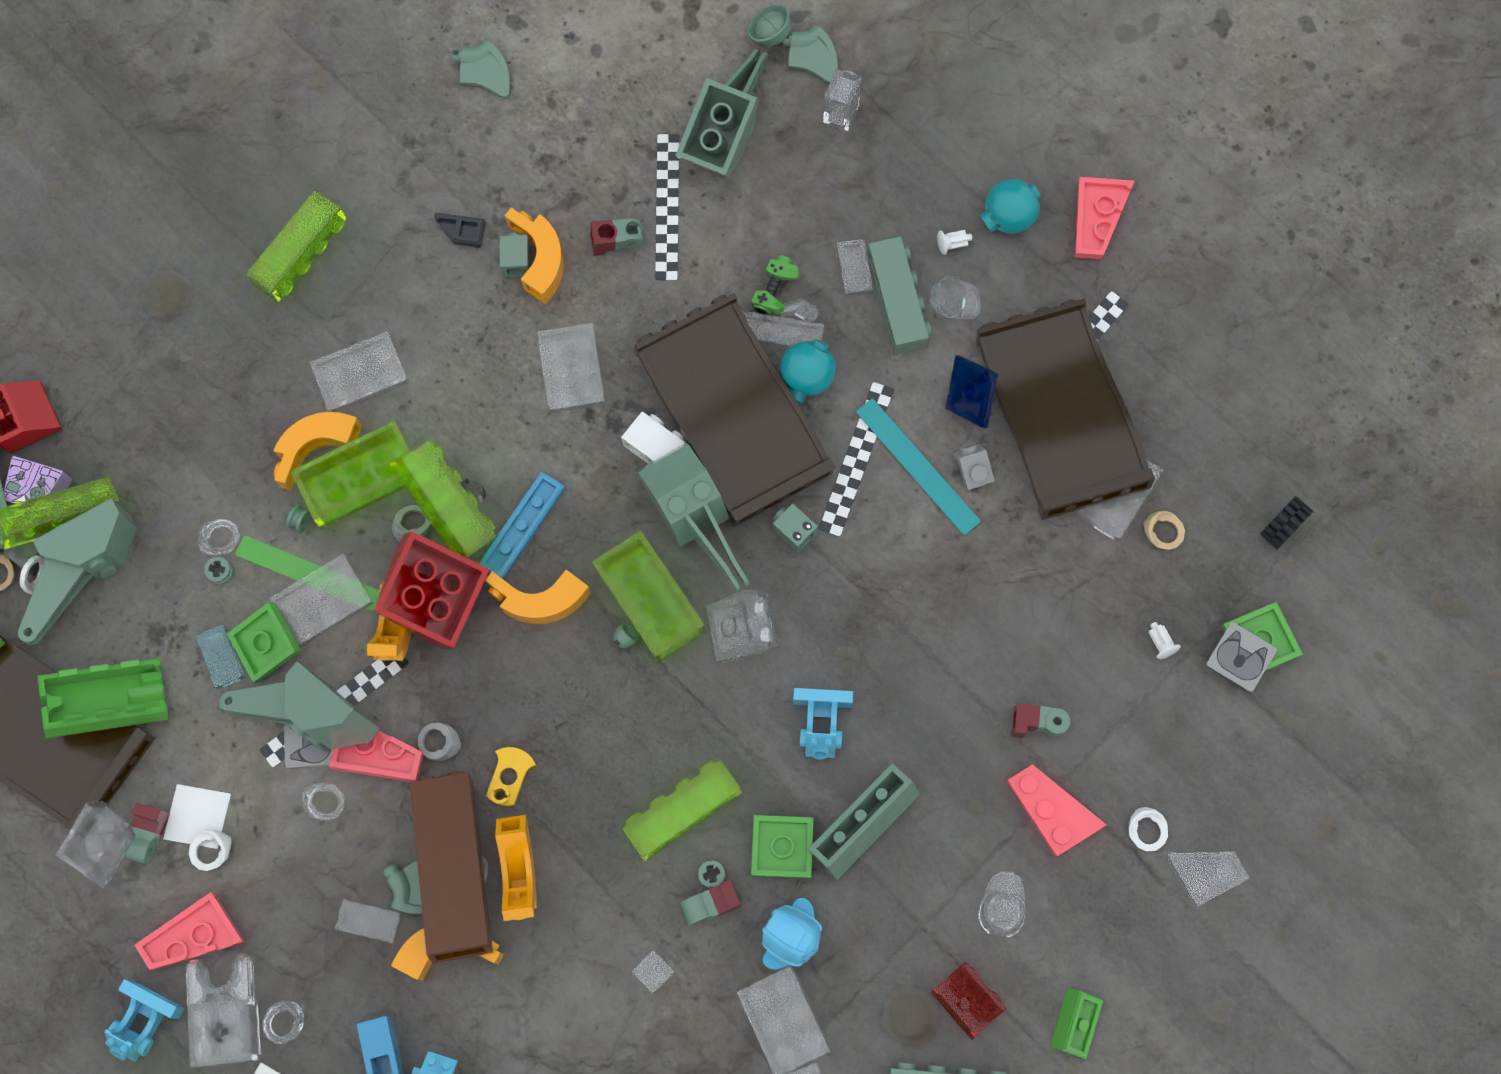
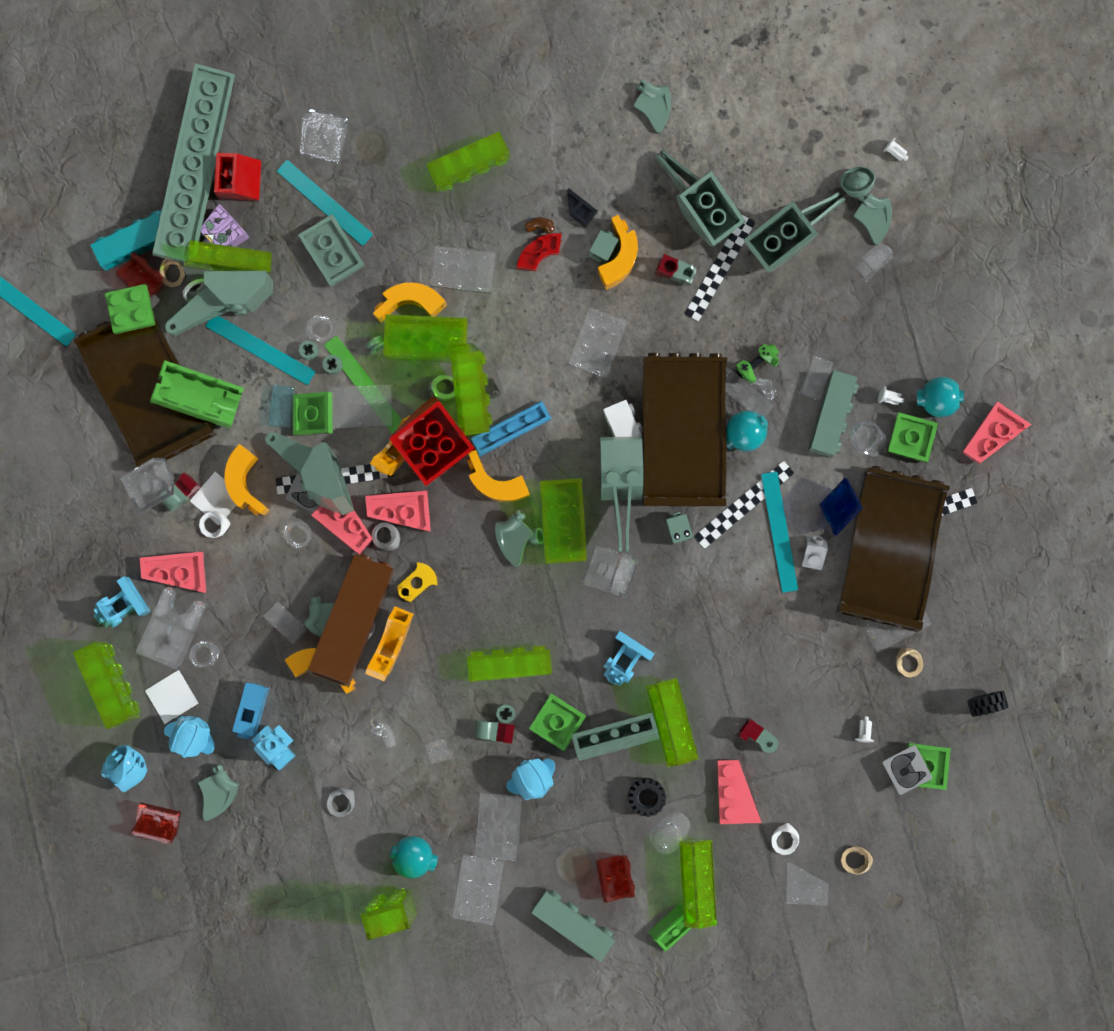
camera: 25 degrees right, 10 degrees up
(102, 310) = (323, 135): none -> clear slope
(146, 388) = (324, 202): none -> teal sticker
(157, 603) = (261, 349): none -> teal sticker
(183, 437) = (331, 250): none -> sand green plate
(204, 767) = (236, 480): none -> light orange arch
(247, 570) = (338, 362): none -> sand green bush
(423, 269) = (540, 222): none -> reddish brown arm
(438, 303) = (538, 250): none -> red tile
(438, 696) = (404, 509): none -> coral wing
(571, 985) = (384, 731): none -> clear arm
(598, 652) = (512, 537): none -> sand green arm
(601, 139) = (703, 202): none -> sand green slope
(924, 763) = (672, 722): none -> clear neon green brick
(966, 875) = (646, 810): none -> black tyre
(1007, 271) = (912, 437): none -> bright green plate
(1074, 945) = (698, 883): none -> clear neon green brick
(1261, 792) = (863, 868): none -> tan piece

